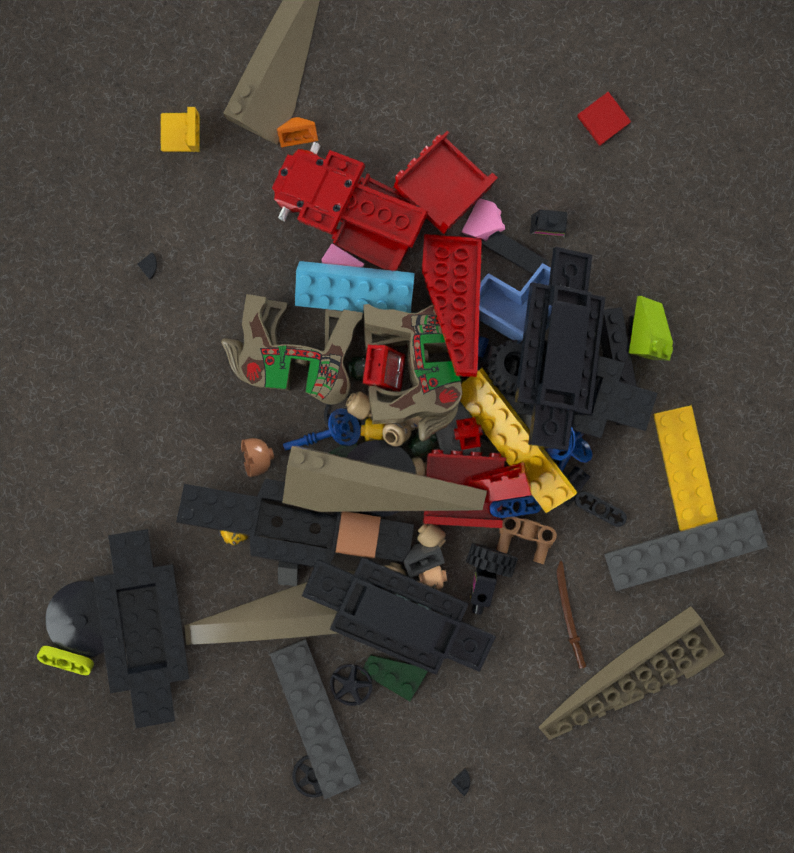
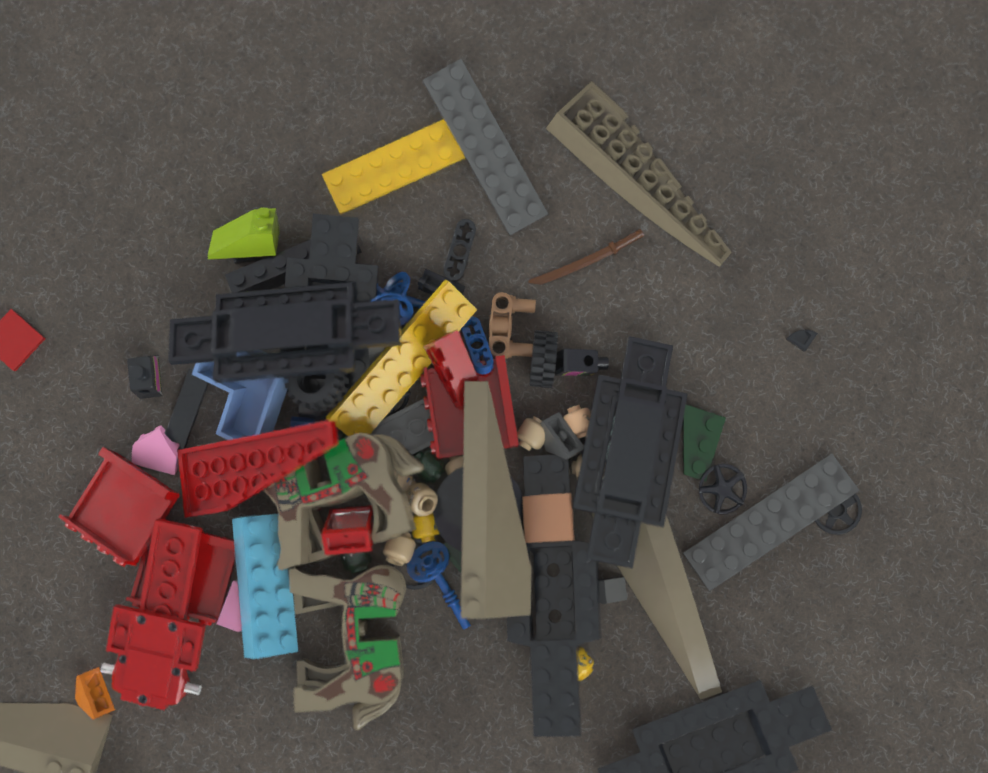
camera: 110 degrees left, 5 degrees down
(256, 456) = (484, 657): nougat cylinder -> none
(468, 433) = (404, 416): red brick -> none

